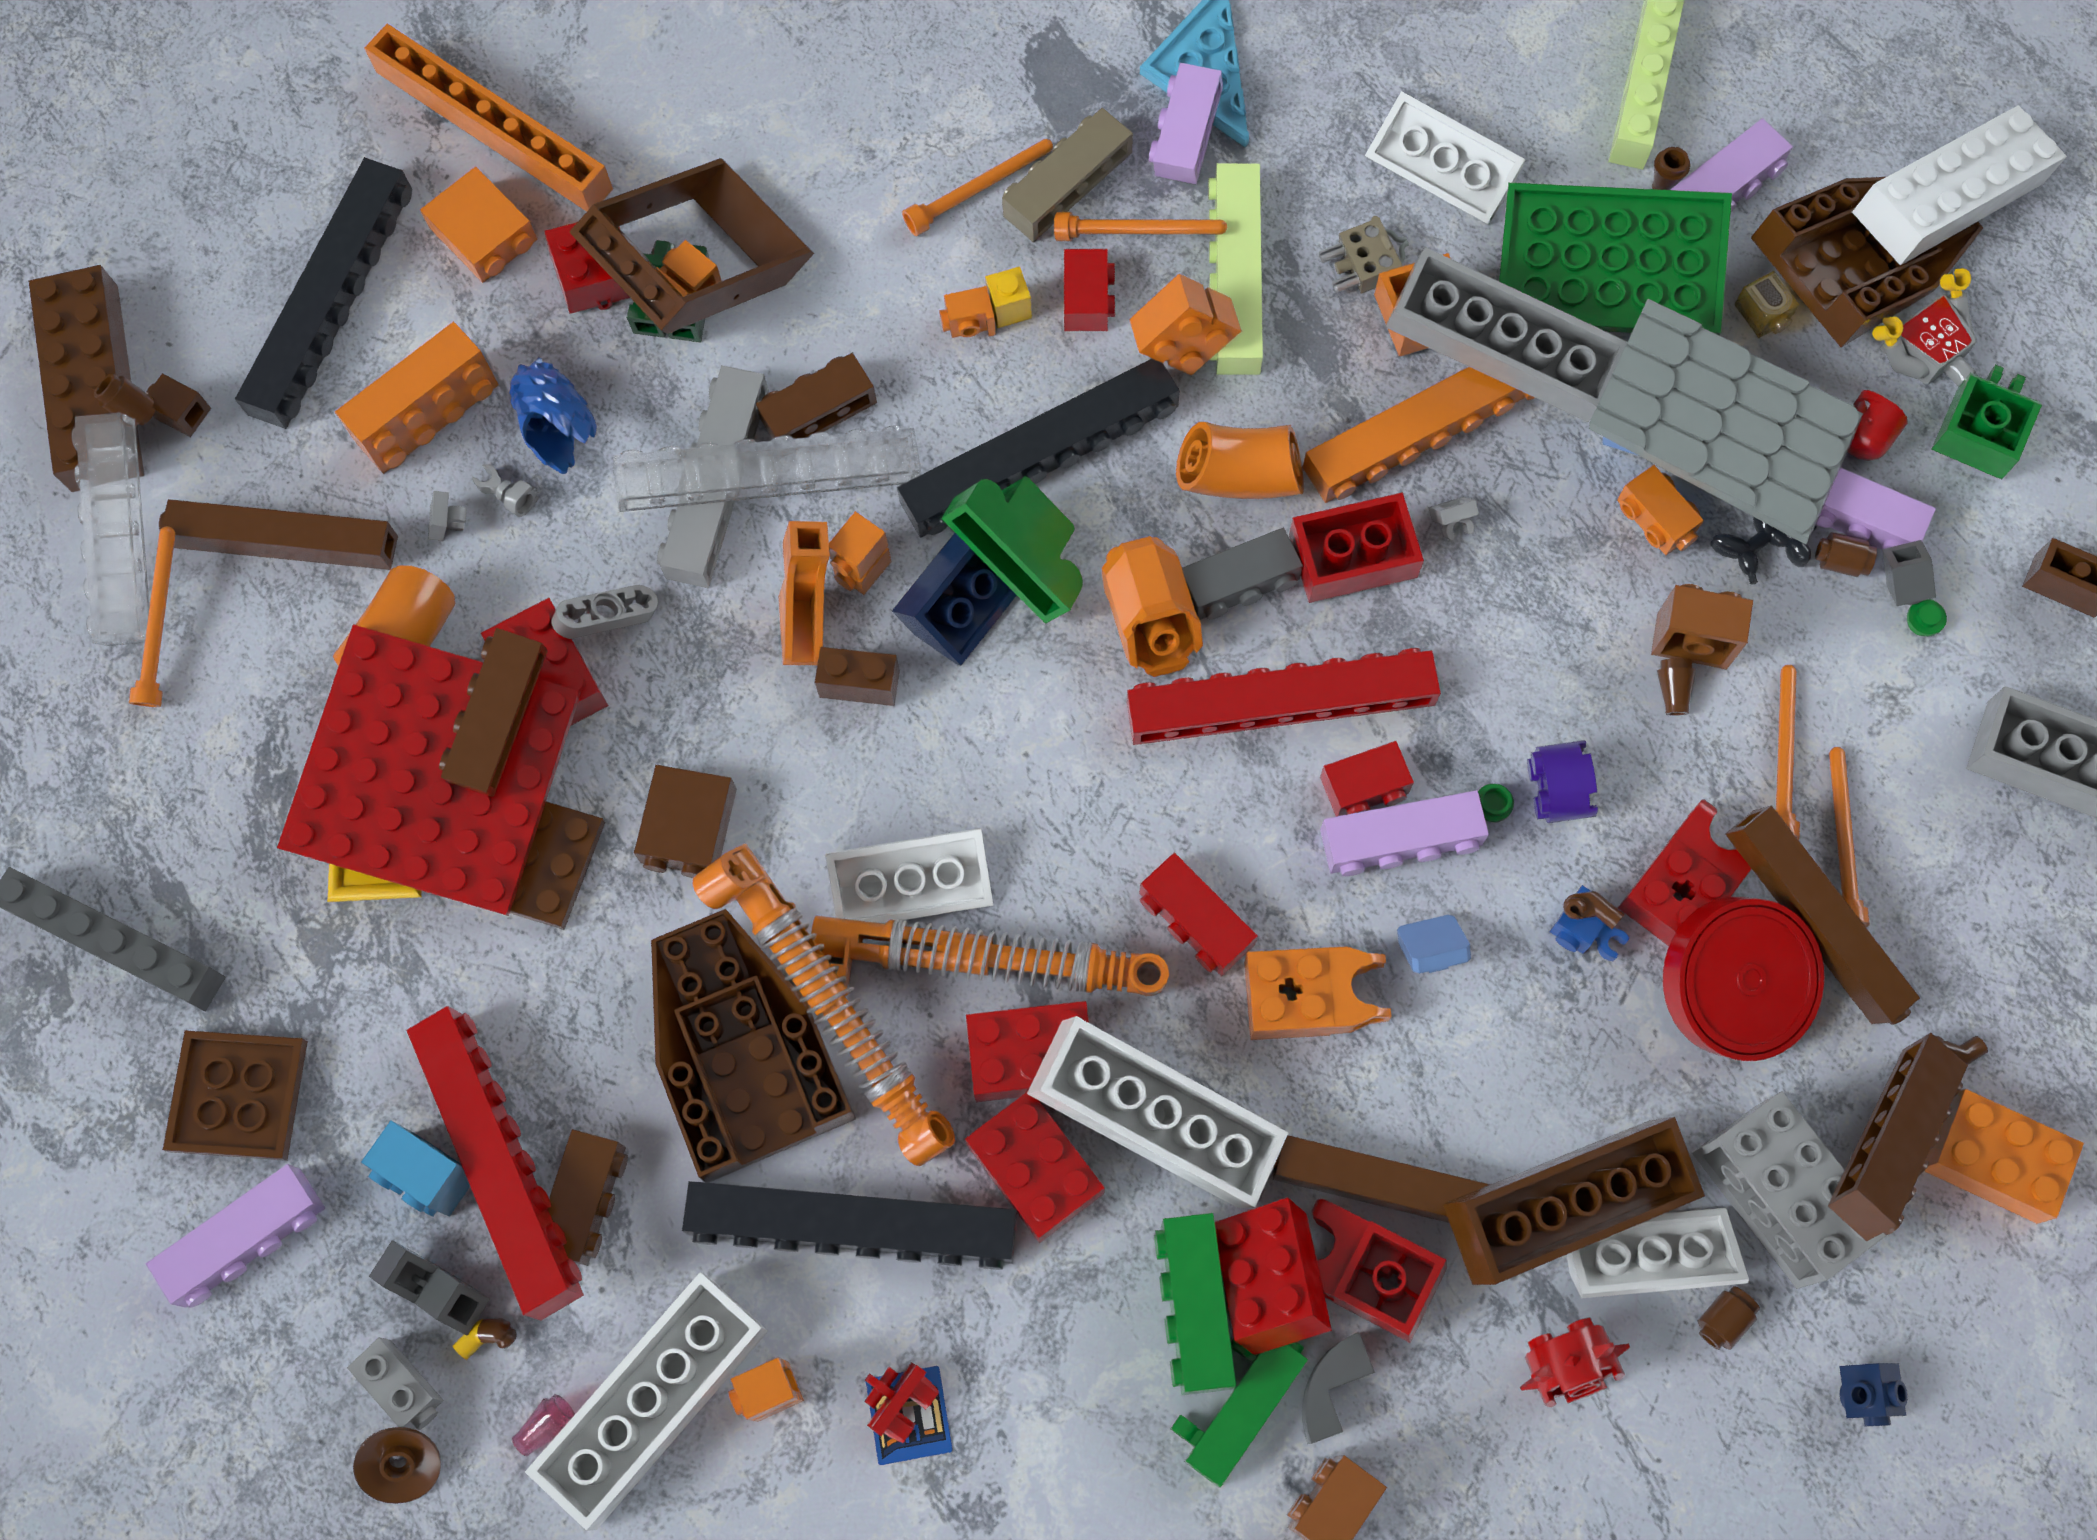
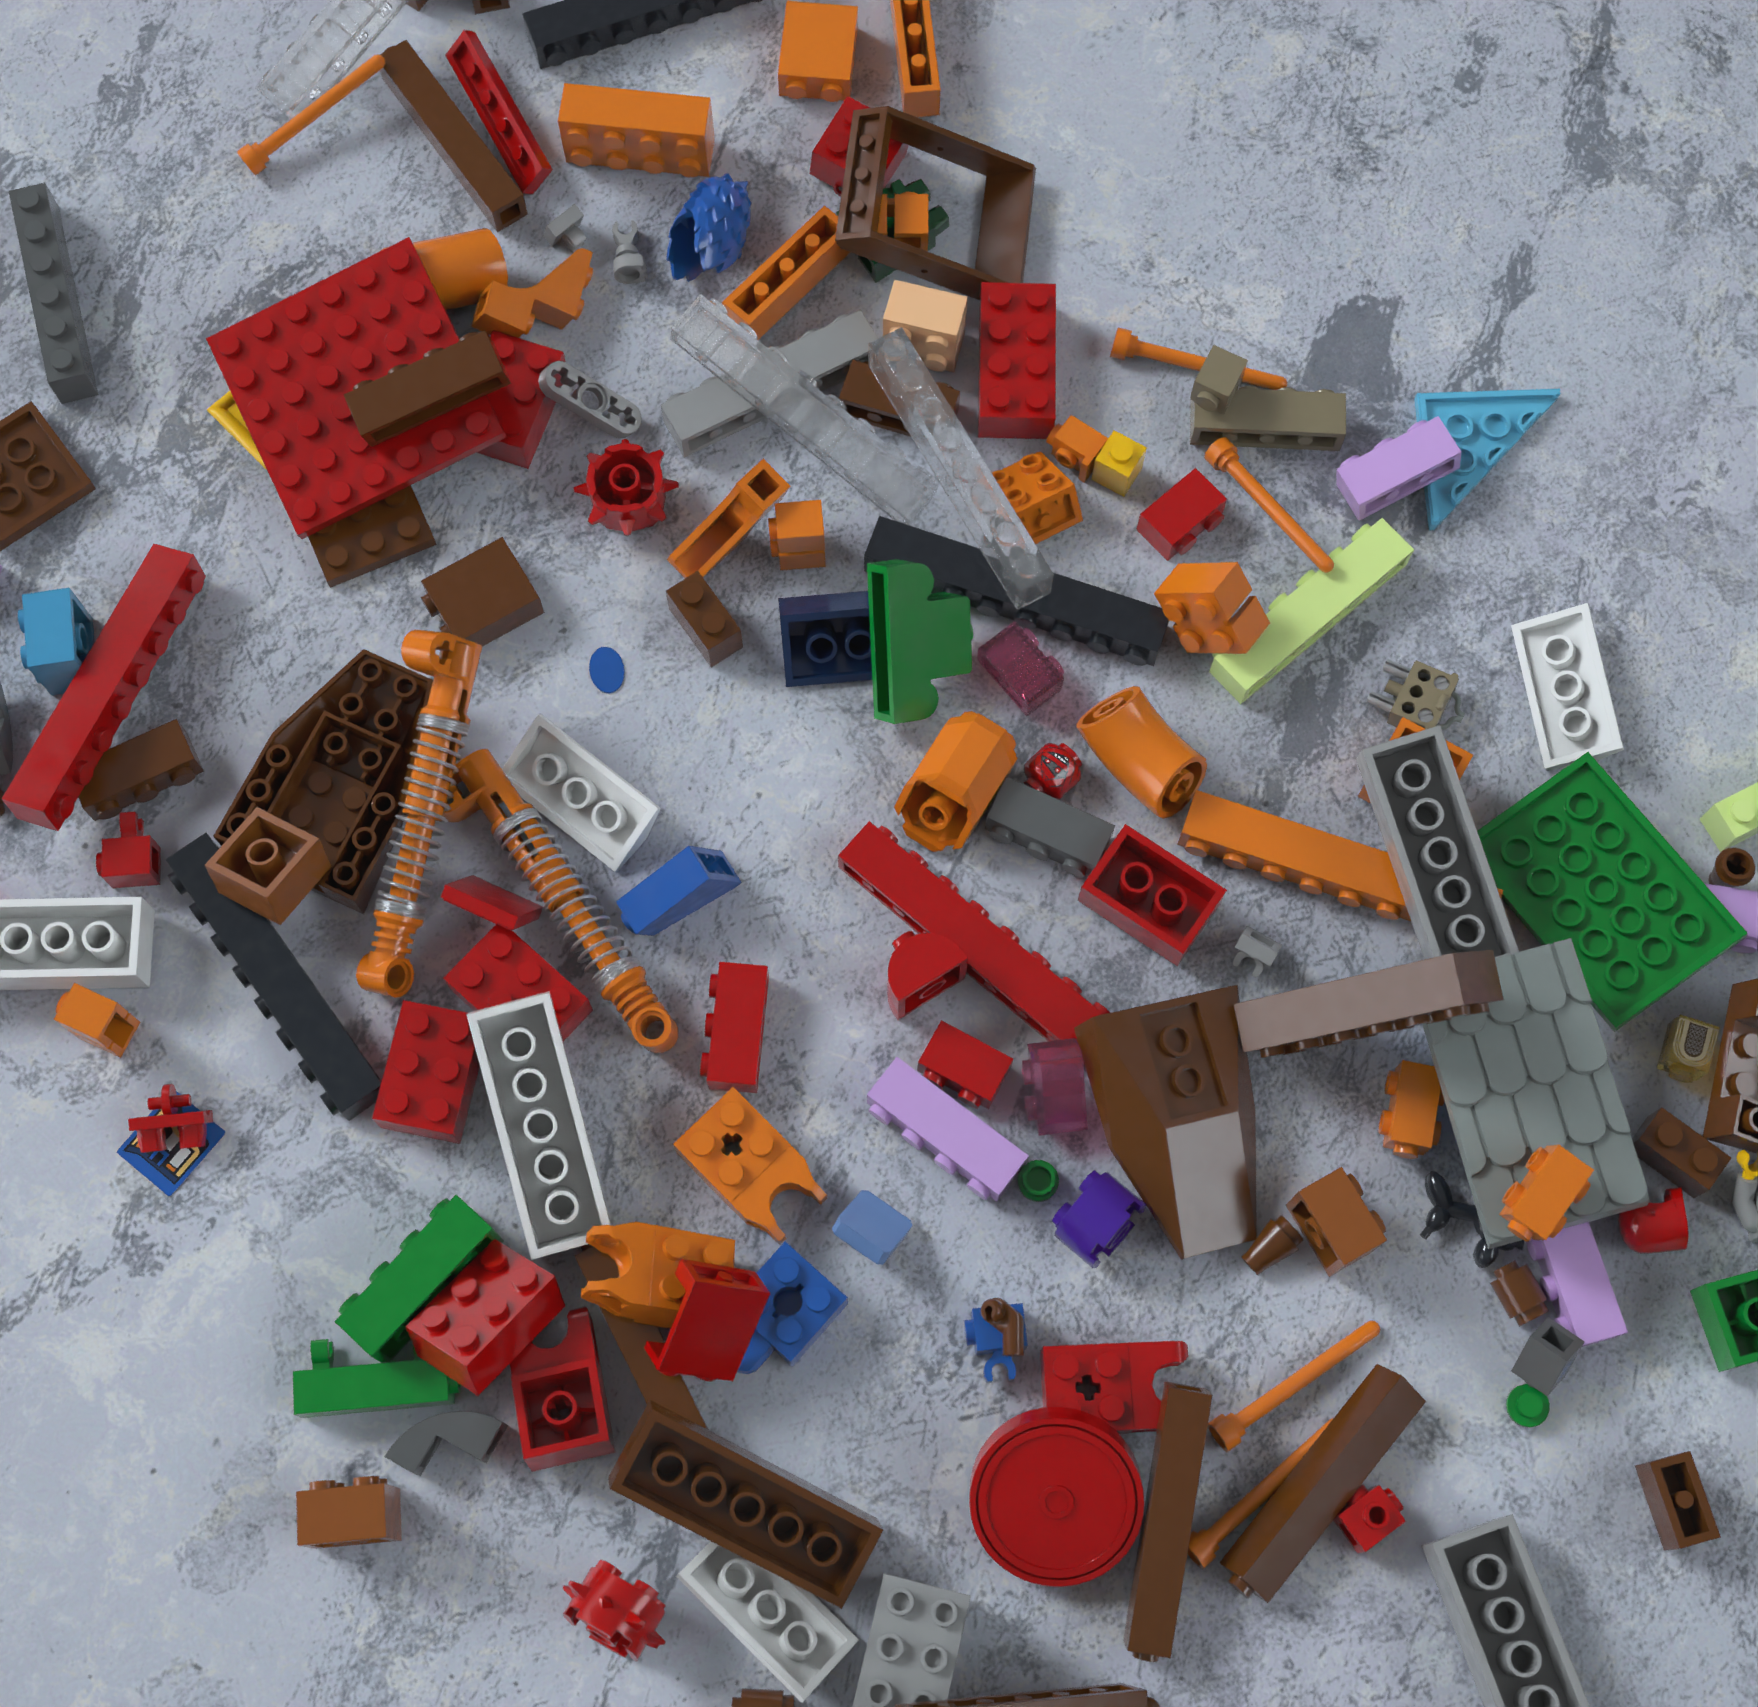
camera: 45 degrees right, 0 degrees up
(294, 484) = (498, 112): none -> red plate
(492, 573) = (552, 300): none -> orange arch
(641, 384) = (787, 274): none -> orange brick
(650, 1259) = (132, 858): none -> red brick
(706, 626) = (626, 487): none -> red brick
(769, 1150) = (268, 865): none -> dark orange brick
(778, 333) = (931, 321): none -> light nougat brick
(826, 781) = (606, 669): none -> blue sticker
(862, 297) = (1017, 360): none -> red brick
(917, 399) = (960, 469): none -> clear brick
(944, 1010) = (491, 902): none -> red tile
(979, 375) = (1040, 496): none -> orange bracket
(1017, 175) = (1218, 380): none -> dark tan brick
(1053, 872) = (677, 890): none -> blue slope
(1101, 491) = (1021, 667): none -> clear pink brick
(1198, 535) = (1053, 770): none -> red head
(1272, 749) = (922, 970): none -> red brick
(1354, 1117) = (647, 1268): none -> orange brick
(1427, 1110) = (712, 1322): none -> red panel
(1442, 1059) = (796, 1312): none -> blue brick
(1443, 728) = (1056, 1086): none -> clear pink brick
(1533, 663) = (1180, 1114): none -> reddish brown wedge
(1582, 463) = (1370, 1004): none -> brick
(1812, 468) = (1546, 1192): none -> orange brick
(1840, 369) = (1679, 1153): none -> reddish brown brick
(1875, 795) = (1321, 1483): none -> reddish brown brick
(1922, 785) = (1369, 1517): none -> red brick

